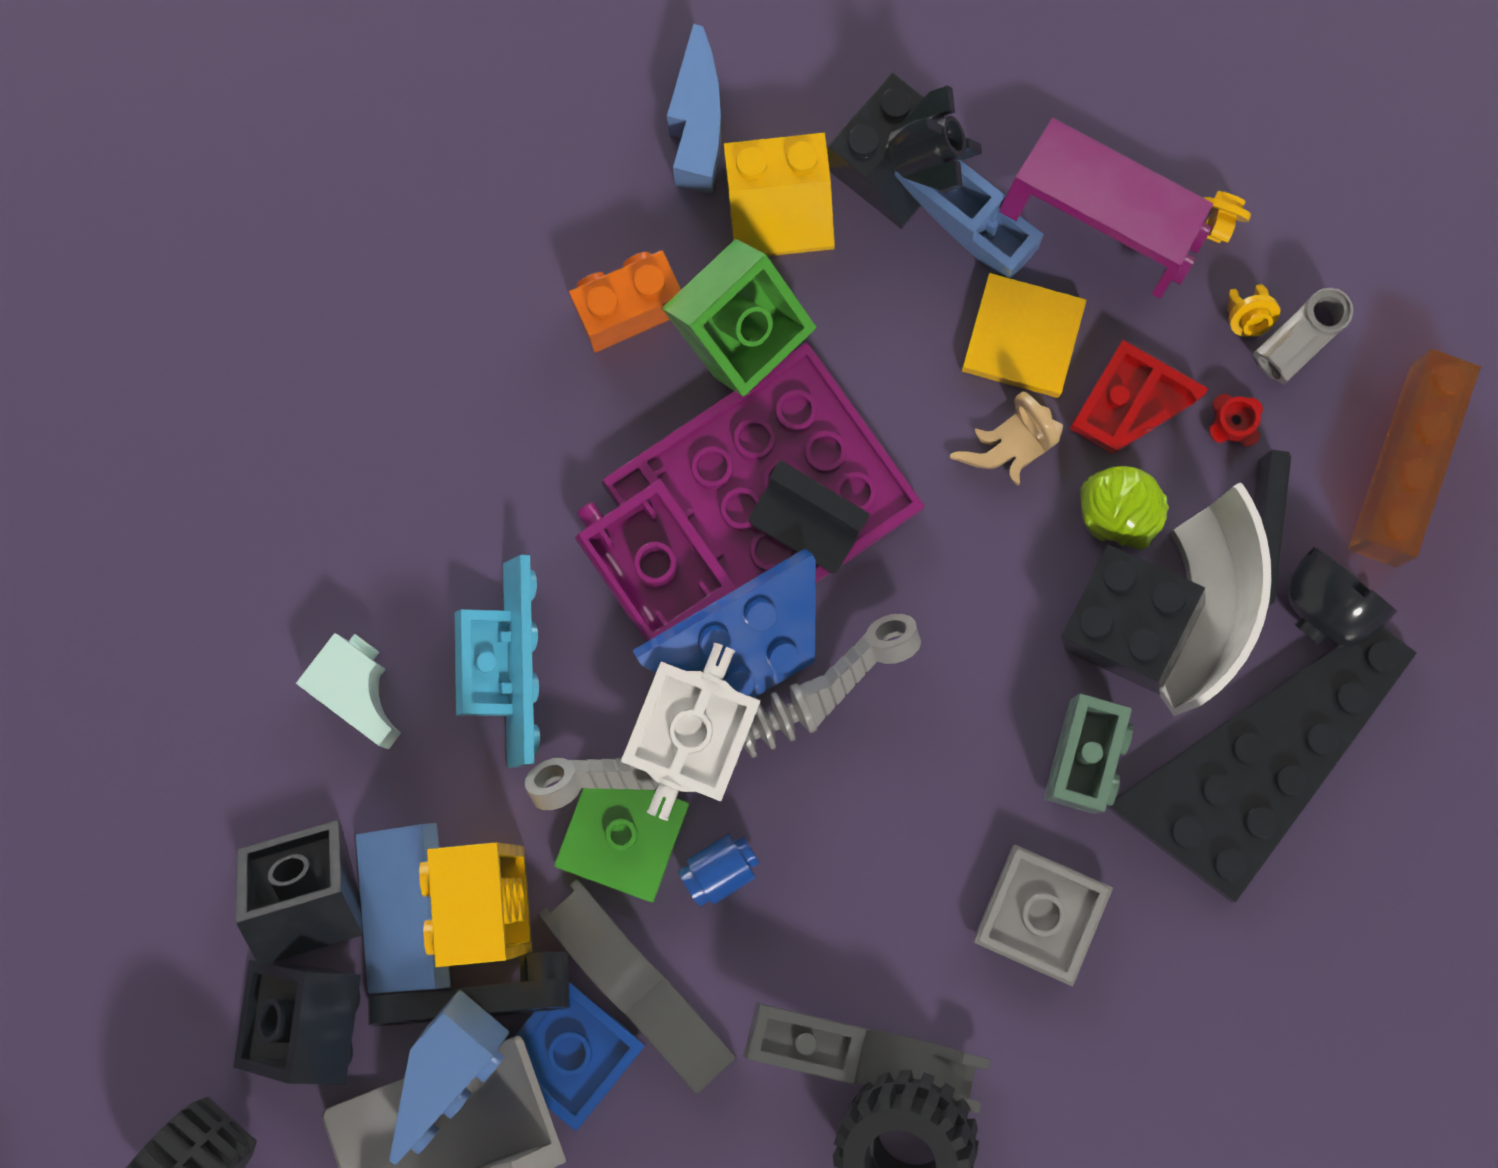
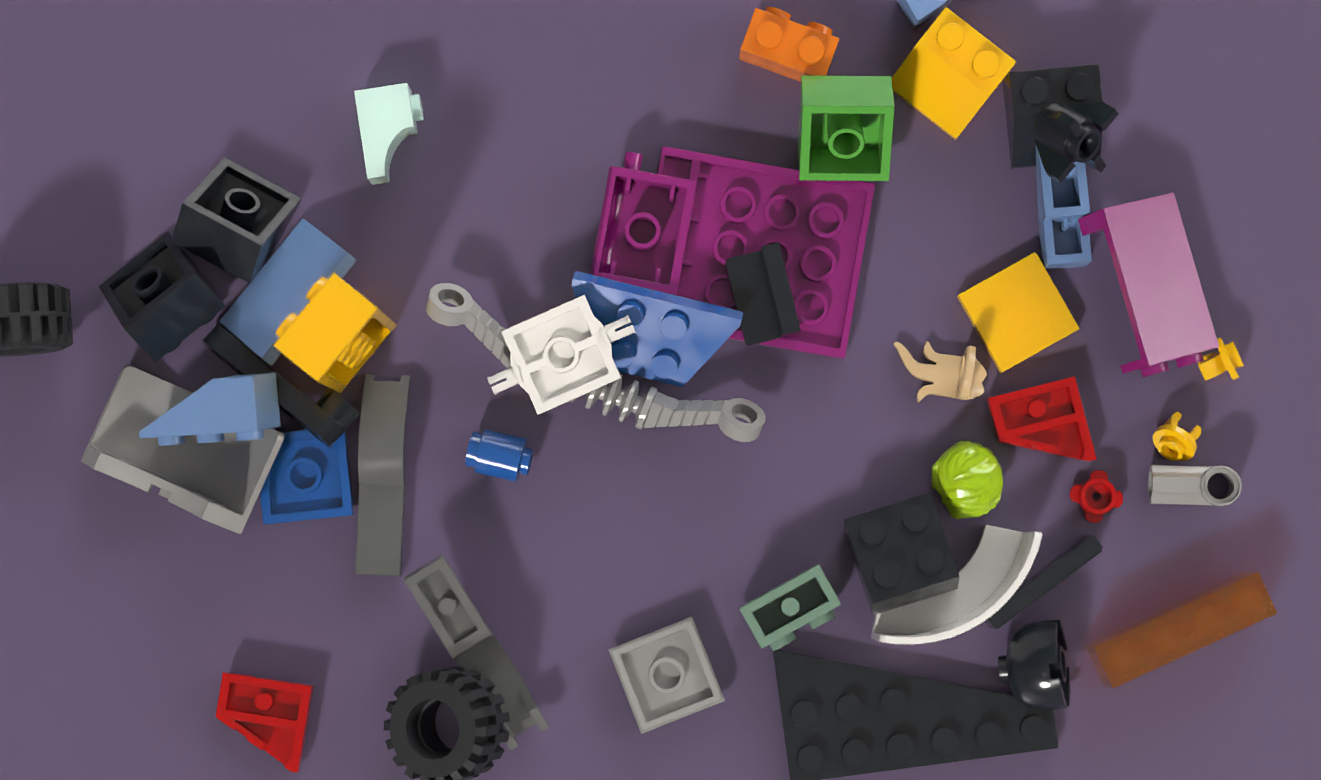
camera: 45 degrees right, 5 degrees up
(496, 662) = (487, 196): medium azure bracket -> none
(620, 842) = (454, 379): bright green plate -> none

